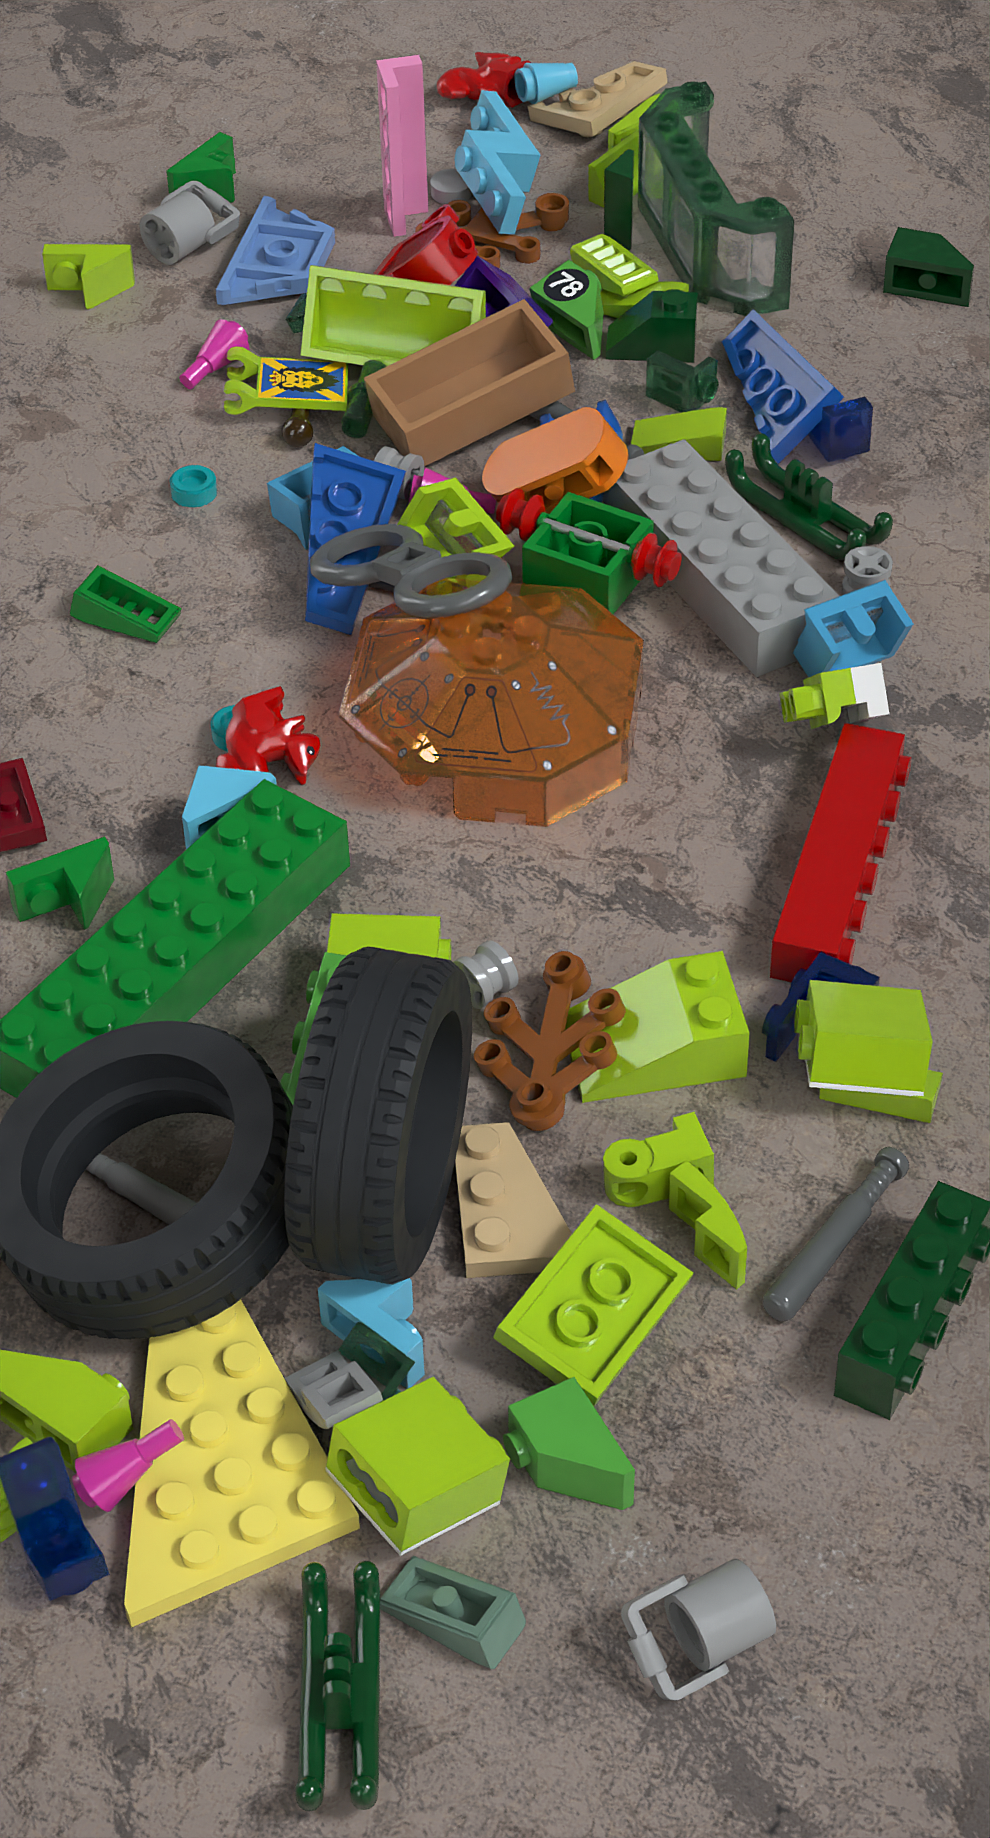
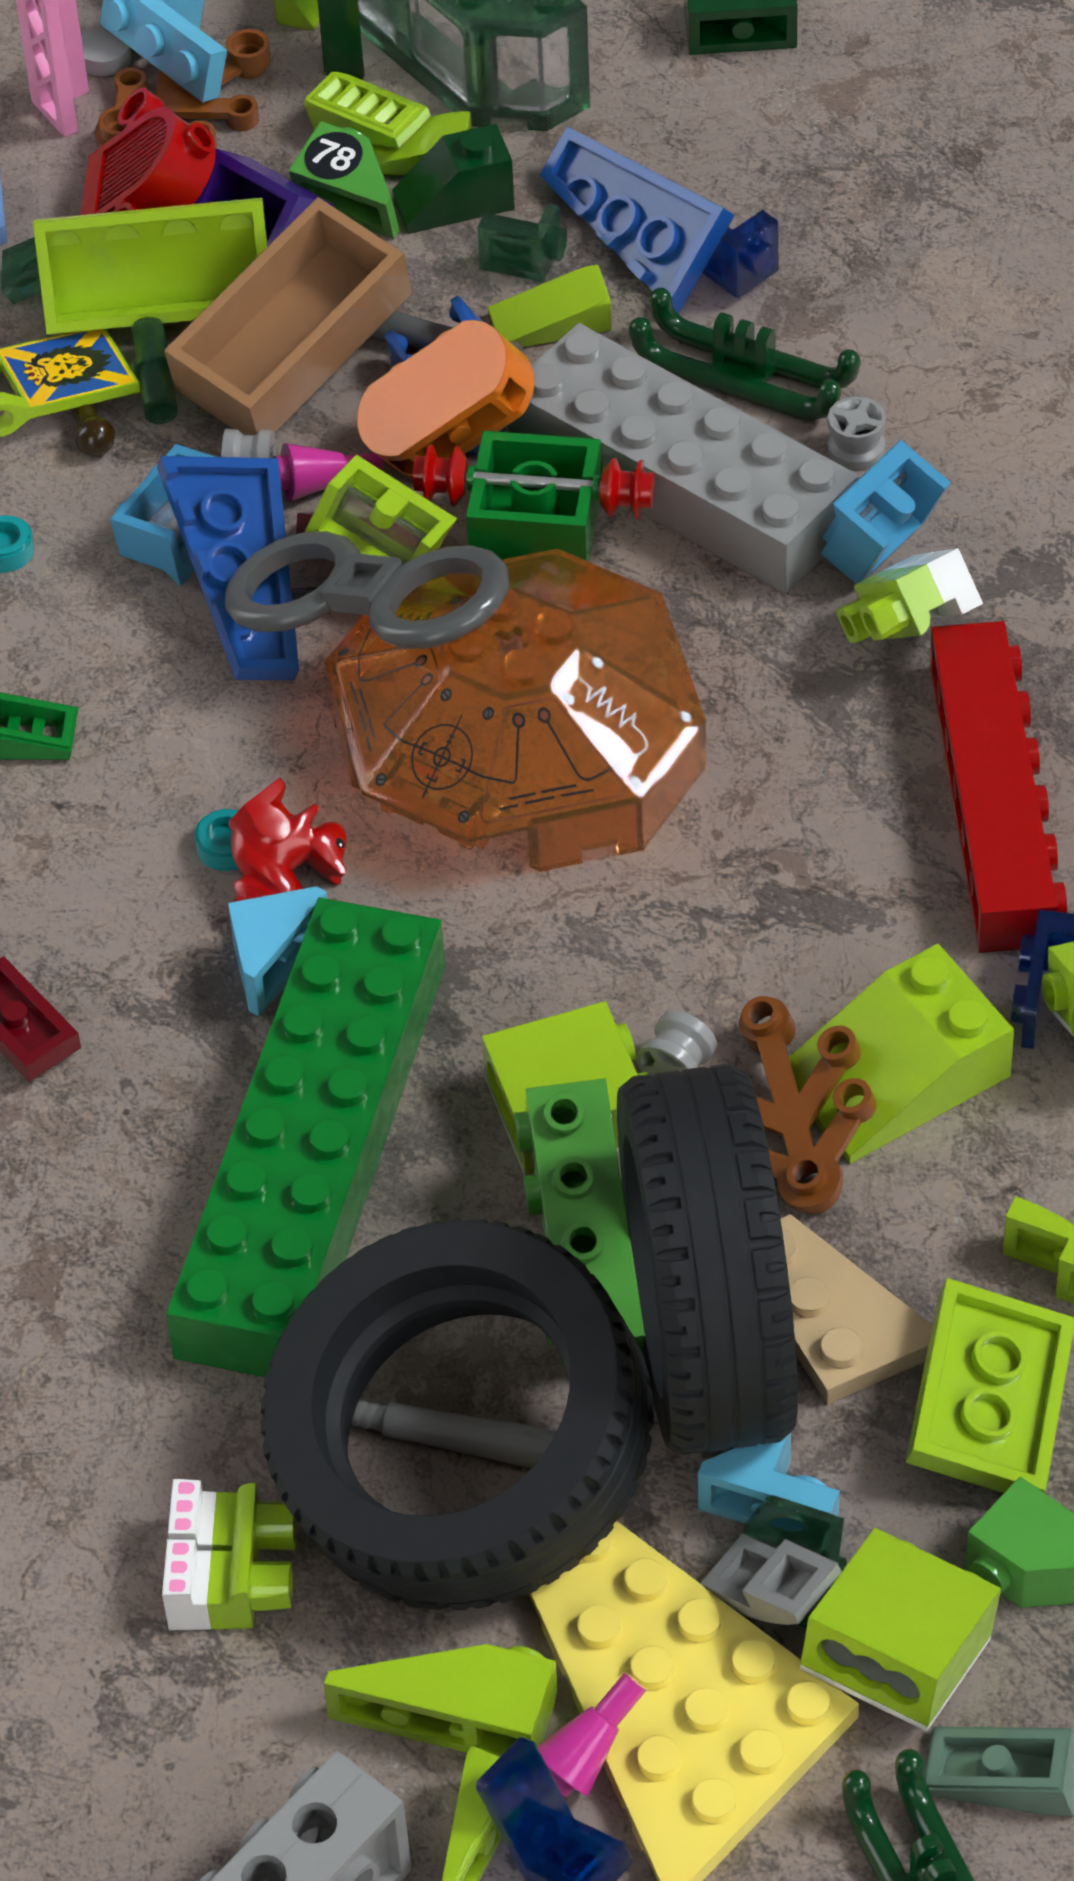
camera: 20 degrees left, 5 degrees up
(69, 877) = (139, 1088): green slope -> none
(640, 1170) = (971, 1217): lime leg -> none

